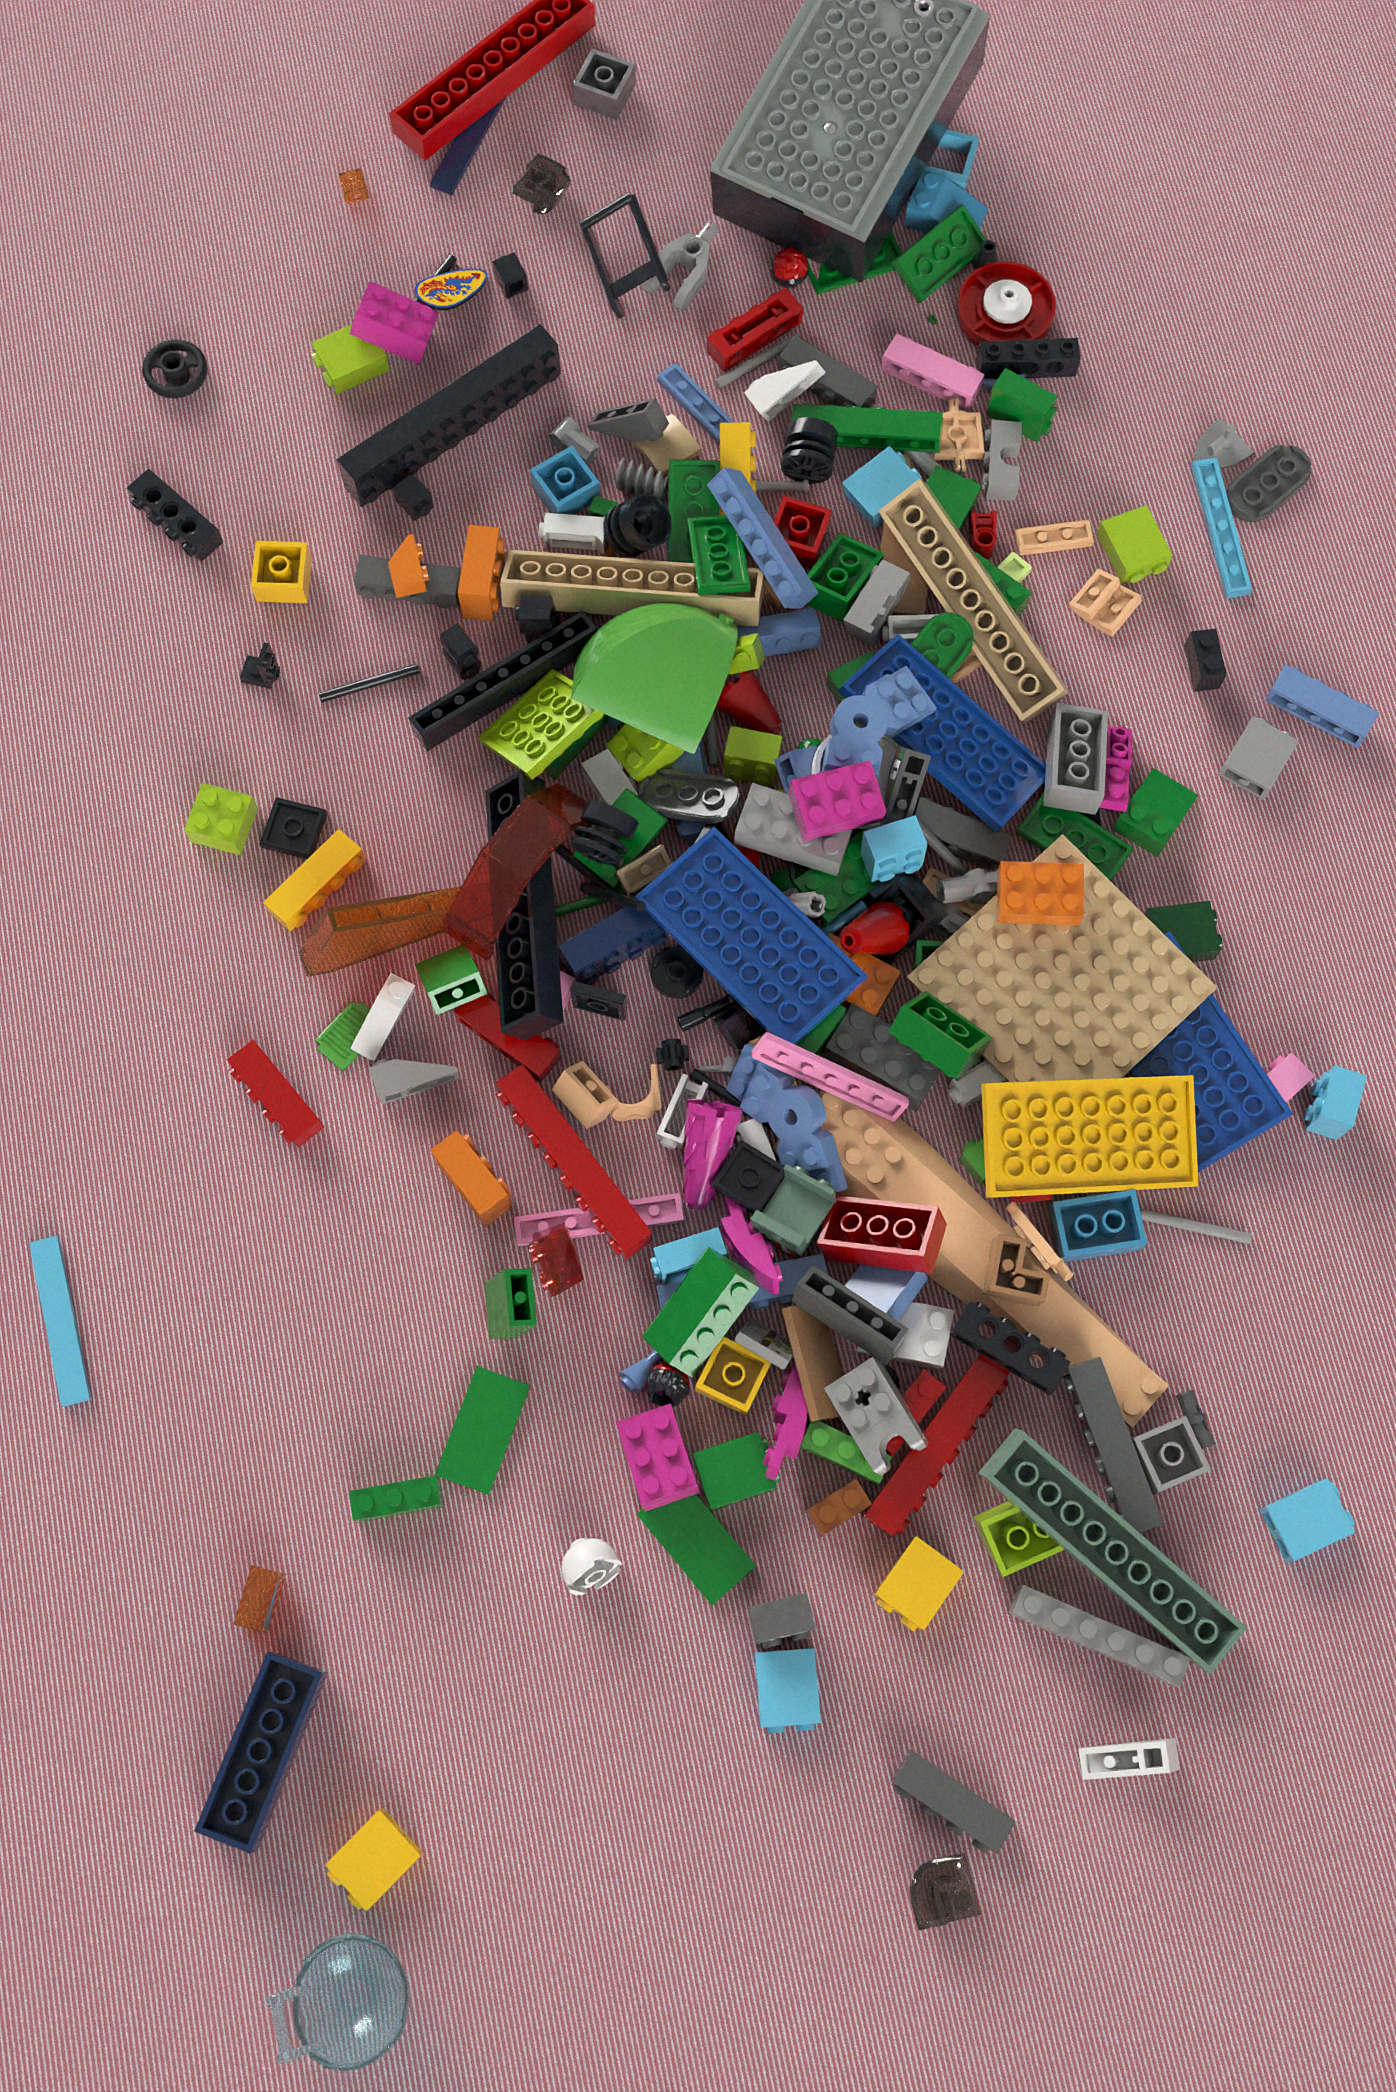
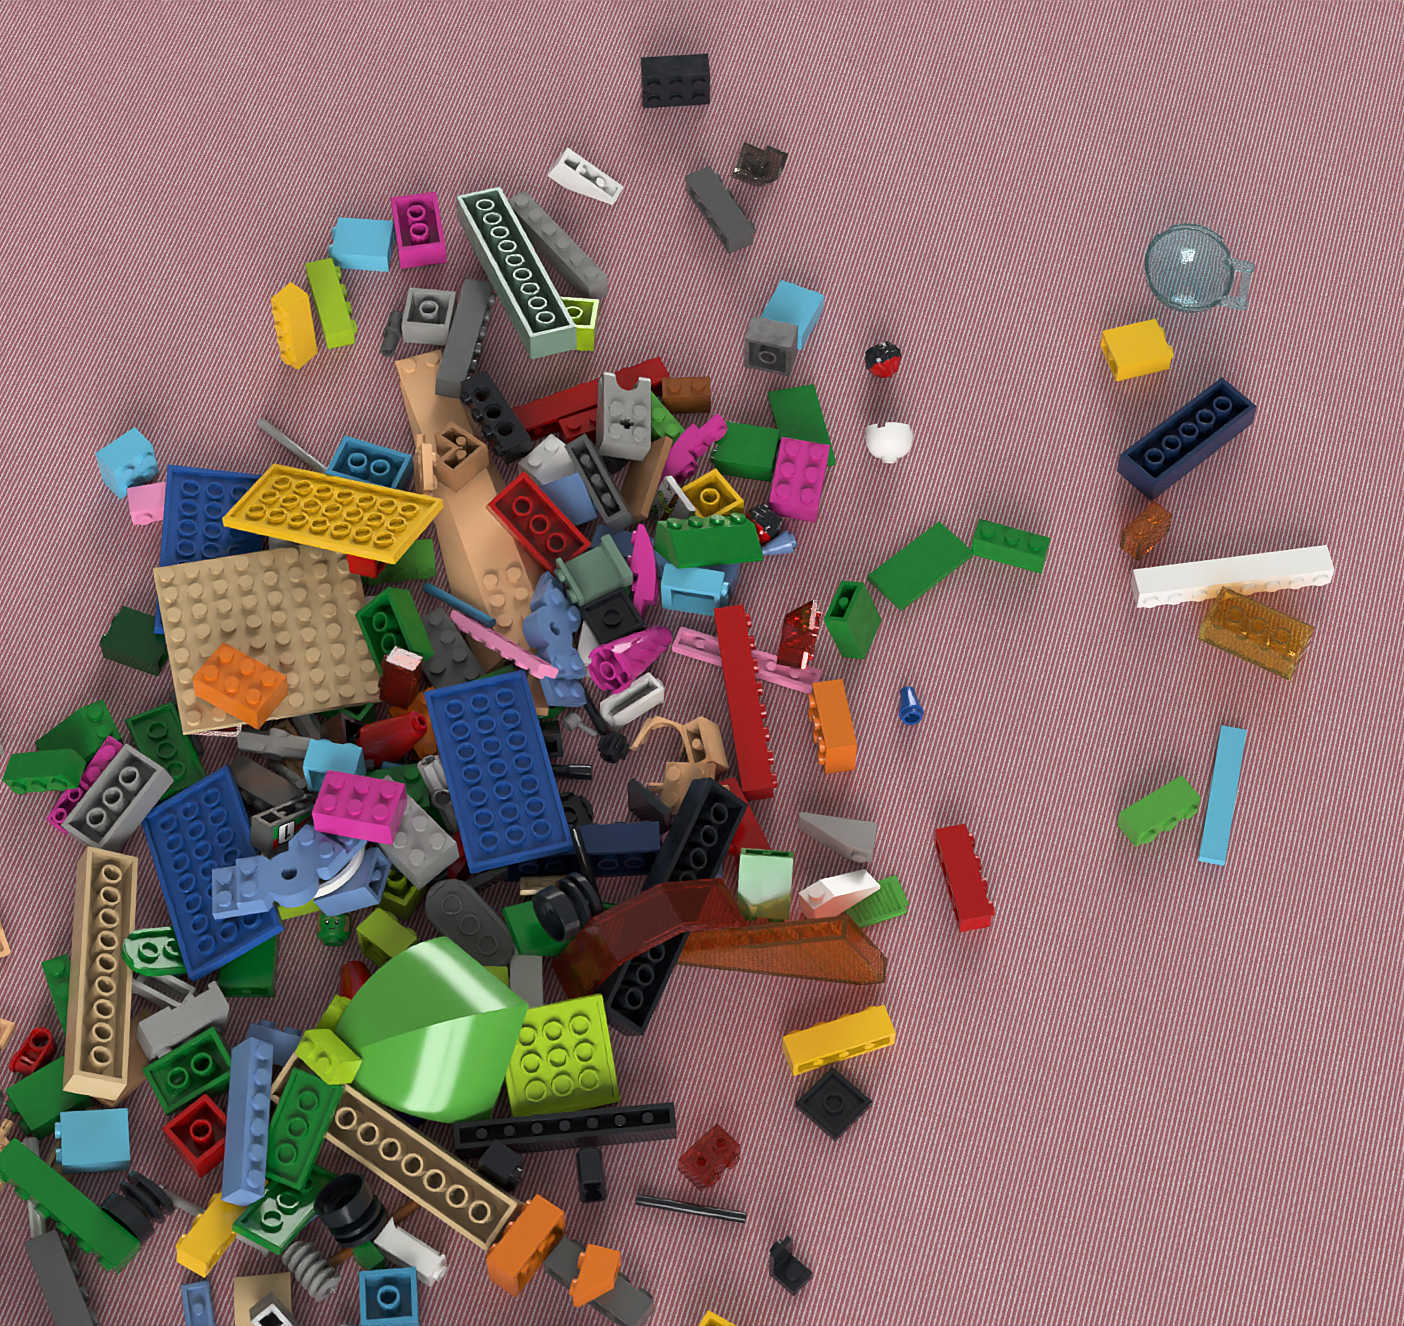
camera: 150 degrees left, 15 degrees down
(88, 1523) = (1256, 633): none -> clear yellow brick
(113, 1262) = (1159, 811): none -> bright green brick
(142, 1592) = (1241, 574): none -> white brick
(221, 819) = (896, 1136): lime brick -> none
(373, 724) = (709, 1158): none -> clear red brick
(412, 1252) = (910, 708): none -> blue cone
(576, 1042) = (678, 779): none -> light nougat plate
(651, 1675) = (883, 360): none -> piece
(725, 600) = (328, 1056): none -> lime brick
(779, 389) = (118, 1290): white slope -> none
(901, 982) = (400, 677): none -> clear red brick
(910, 1123) = (459, 605): none -> dark azure bar
(917, 1584) = (660, 329): yellow brick -> none
(1015, 567) = (34, 1007): yellowish green plate -> none
(1116, 1971) = (675, 80): none -> black piece
(1161, 753) = (44, 771): none -> green brick
(1260, 1569) = (418, 230): none -> dark pink brick
(1286, 1421) = (330, 303): none -> lime brick
(1289, 1336) = (294, 326): none -> yellow brick

